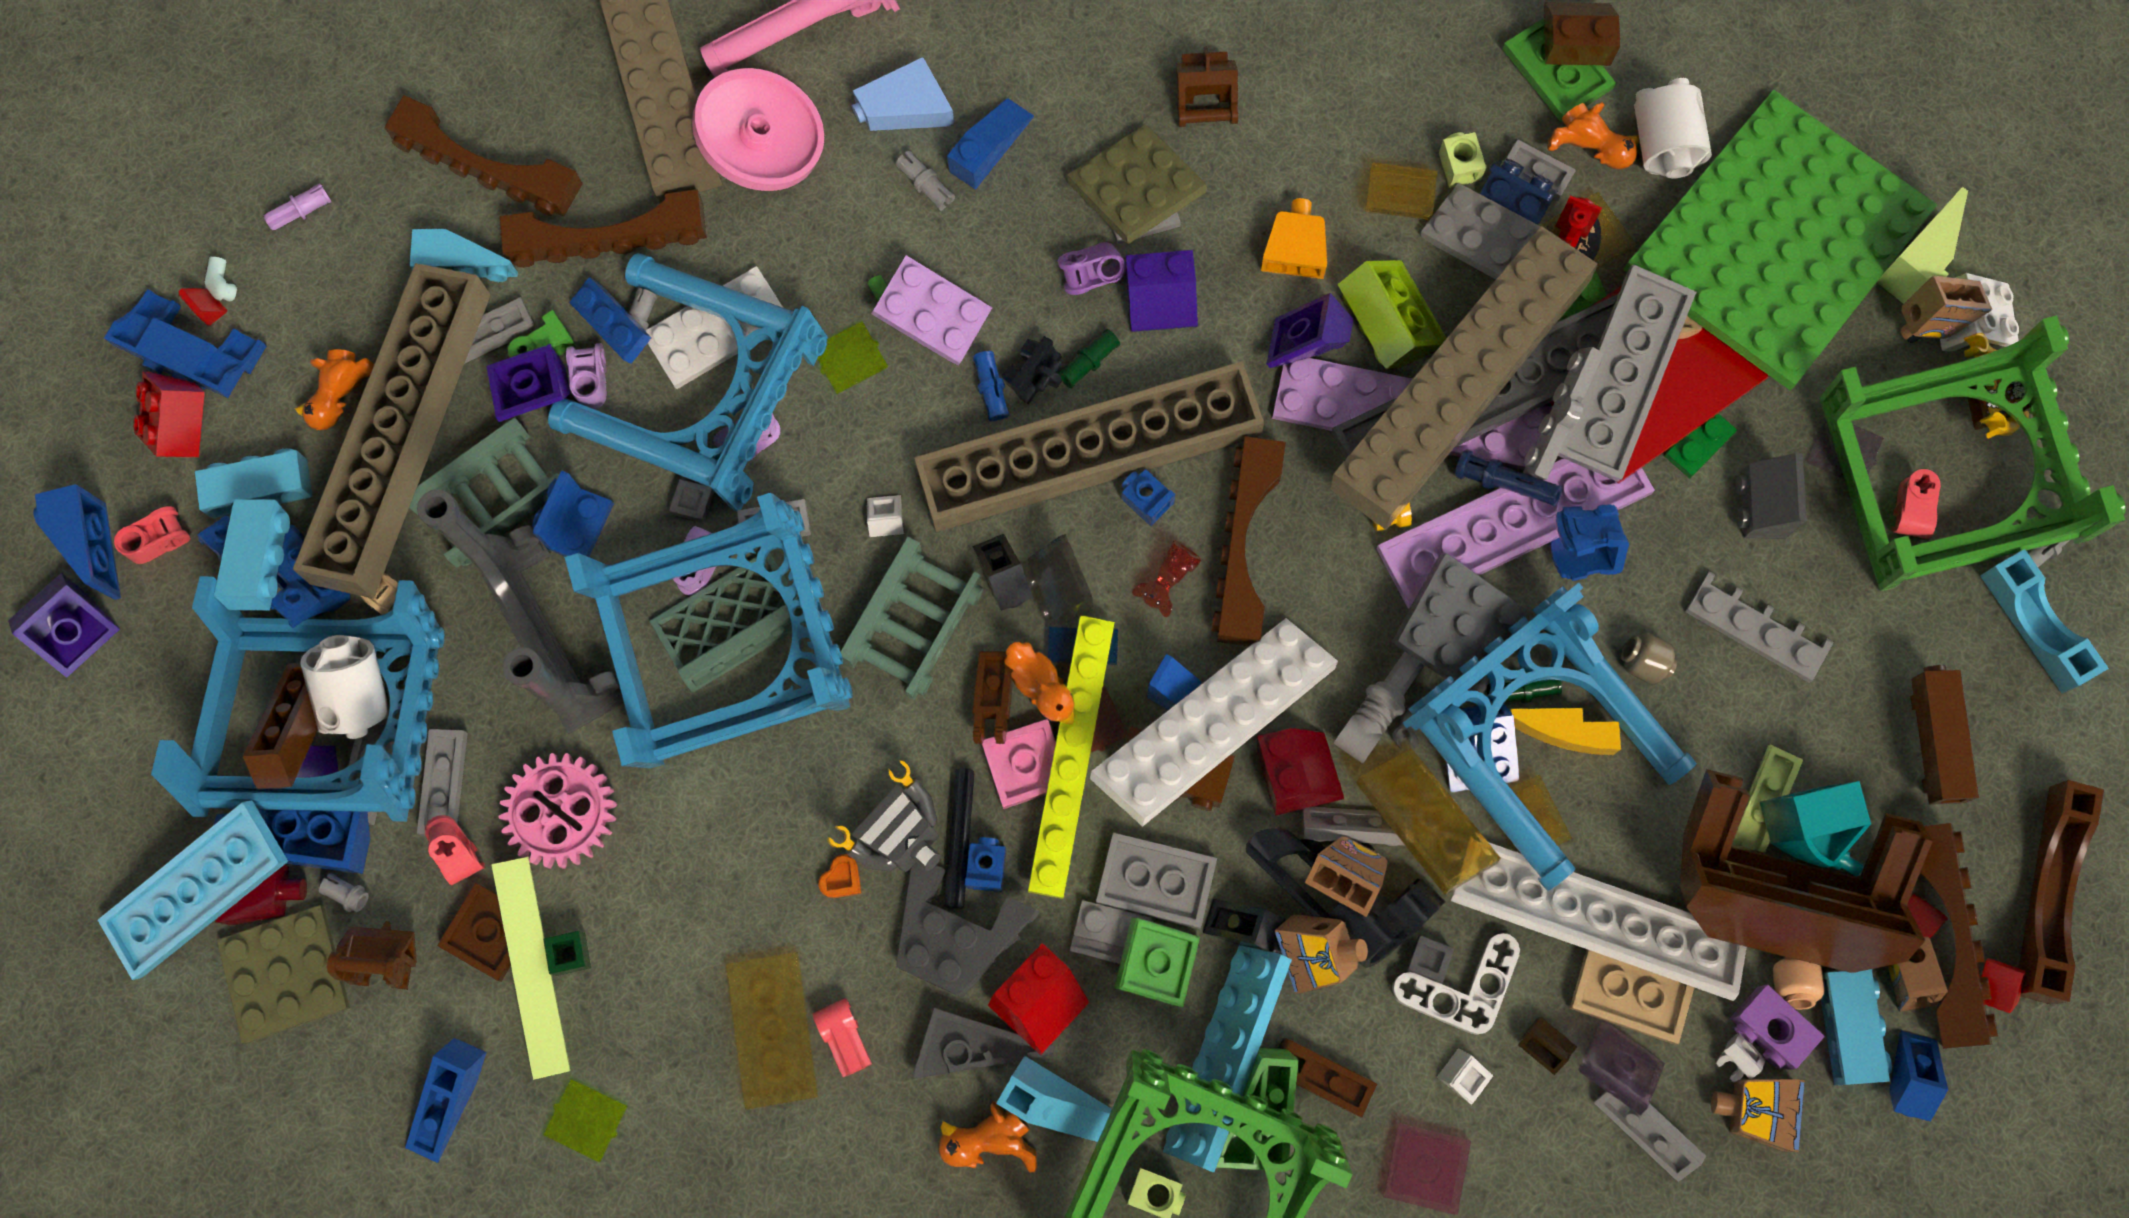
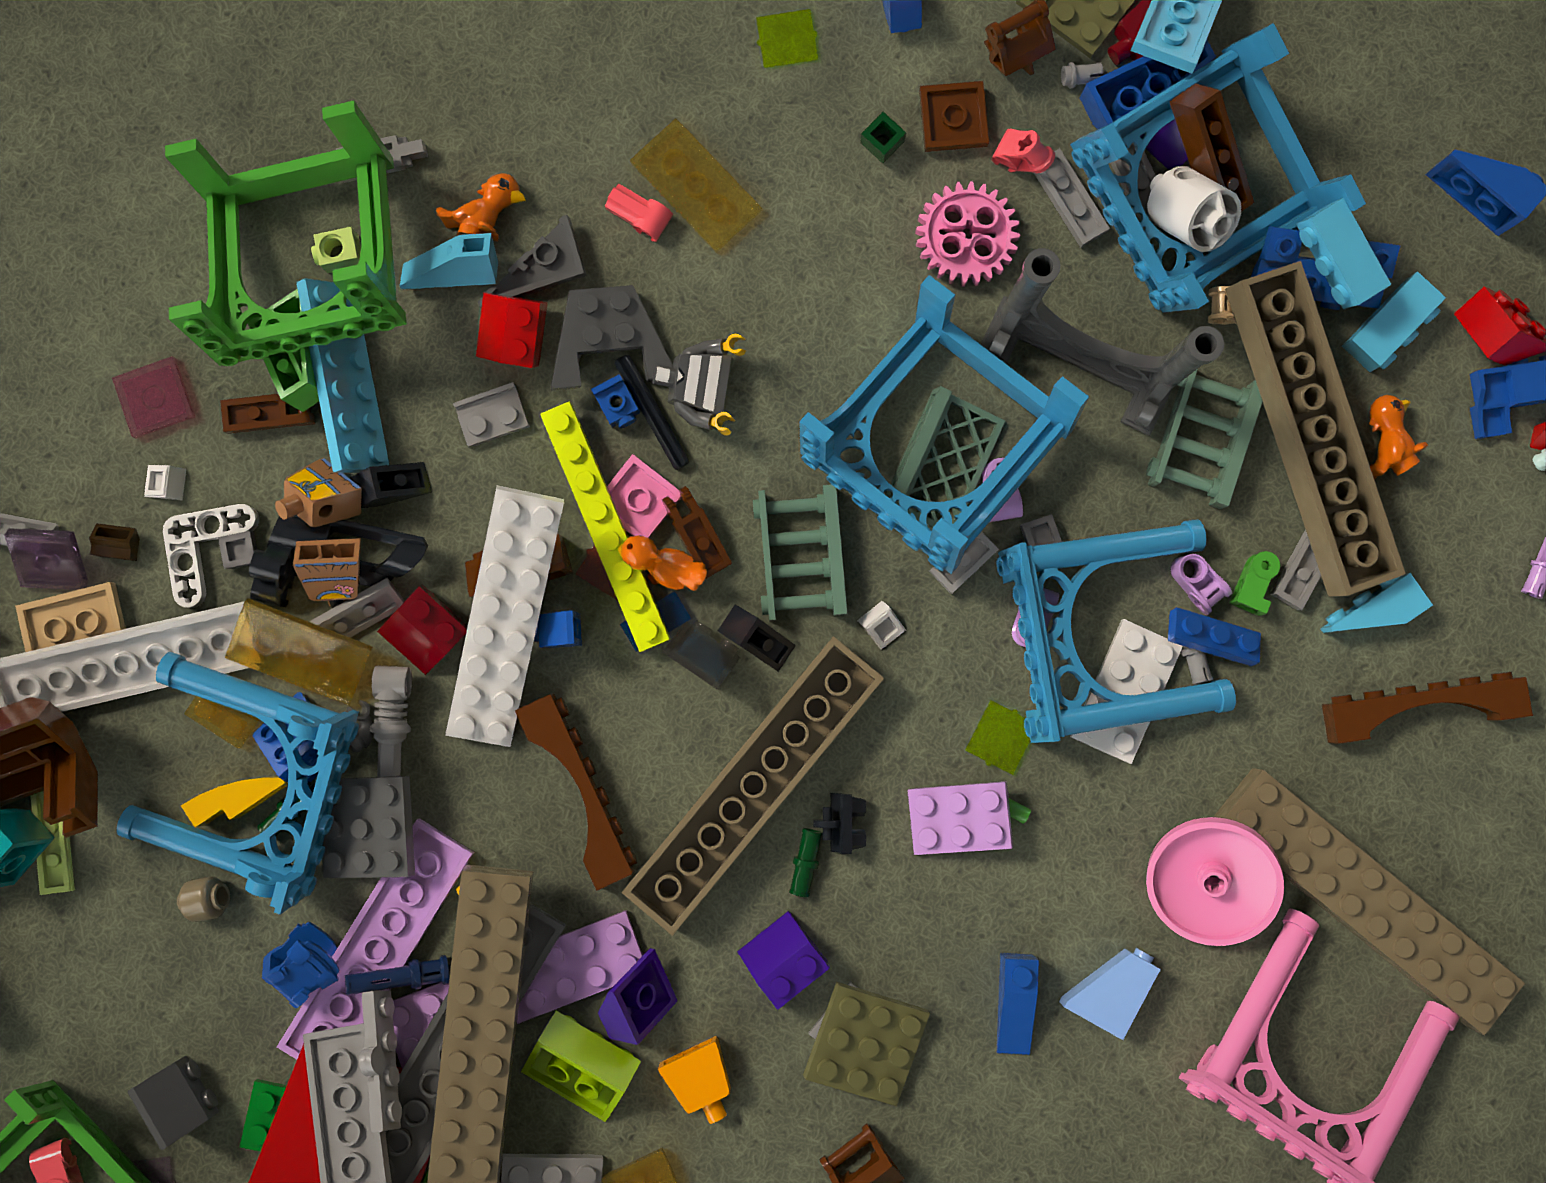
camera: 145 degrees right, 10 degrees up
(62, 625) = (1451, 120): dark purple slope -> none
(158, 535) = (1437, 236): coral piece -> none
(527, 382) = (1237, 537): dark purple slope -> none
(530, 968) = (914, 118): yellowish green tile -> none
(570, 517) = (1122, 456): blue bracket -> none
(674, 220) = (1226, 760): reddish brown arch -> none
(841, 879) = (720, 322): orange tile -> none
(924, 180) = (1046, 932): light grey pin -> none
(991, 386) = (869, 786): blue pin -> none
(1088, 269) = (853, 944): medium lavender piece -> none
(1147, 507) = (669, 774): blue brick -> none
(1156, 880) = (469, 476): light grey plate -> none
(1157, 962) = (441, 414): bright green plate -> none
(1172, 571) = (620, 737): clear red animal -> none
(1757, 630) = (132, 981): light grey hinge -> none

